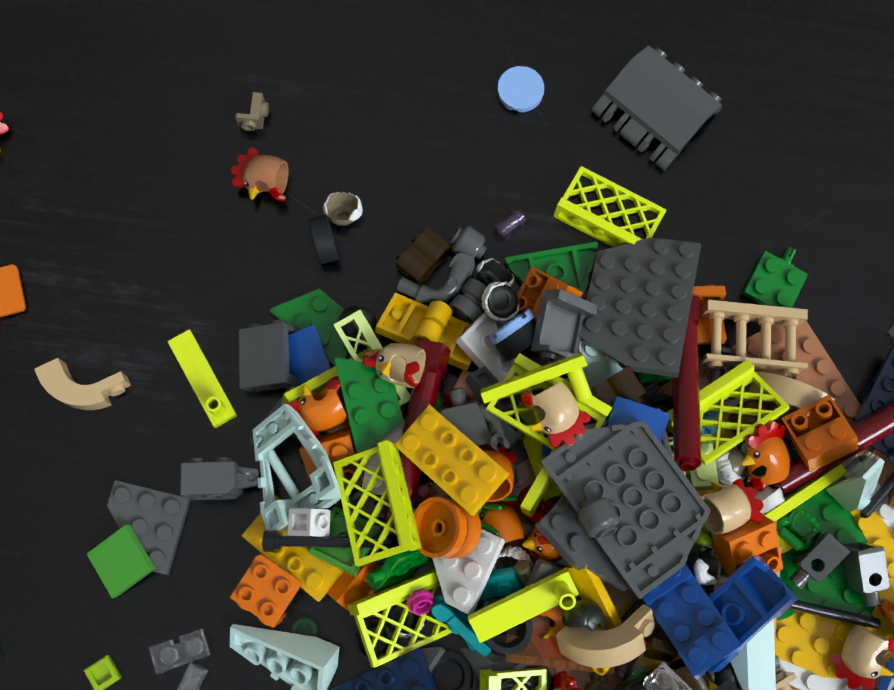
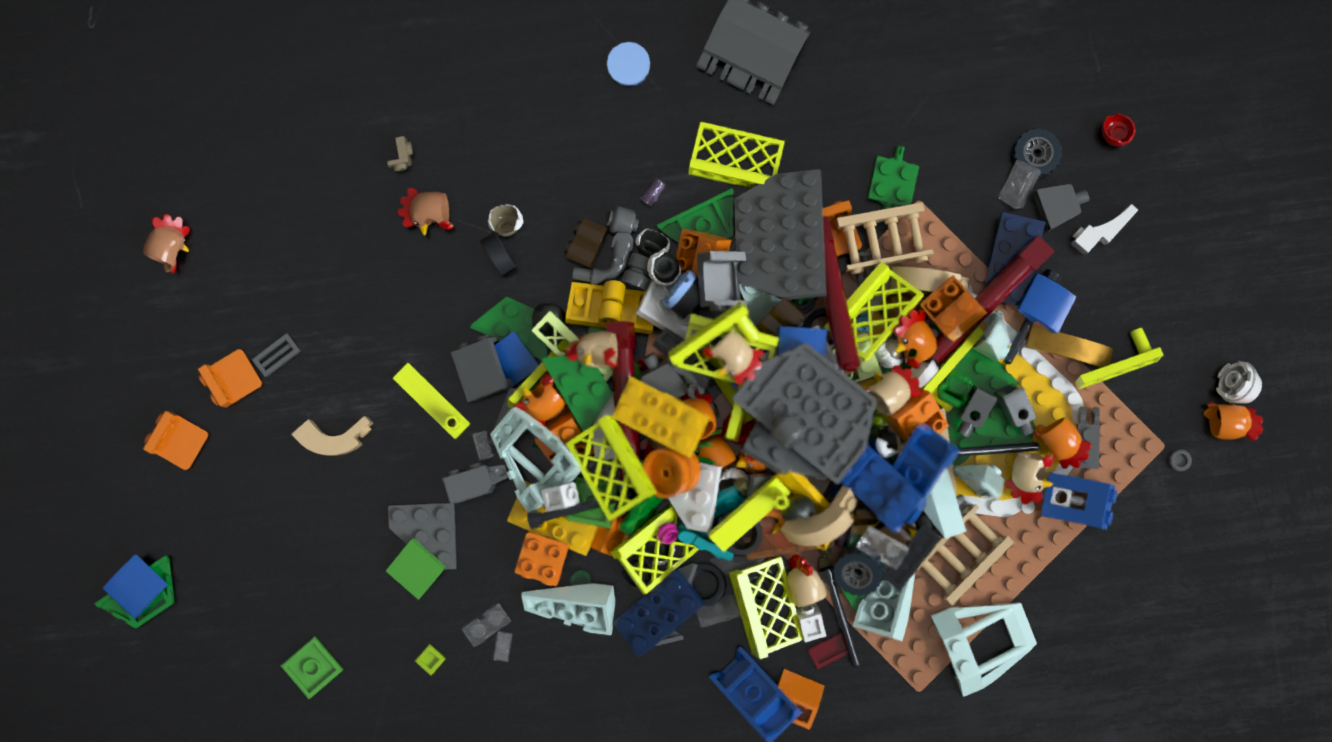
camera: 10 degrees left, 10 degrees up
(72, 276) = (292, 344): none -> dark grey tile
(241, 446) = (482, 445): none -> clear piece
(627, 606) = (832, 491): none -> dark blue tile
(808, 646) = (982, 479): none -> light aqua wedge

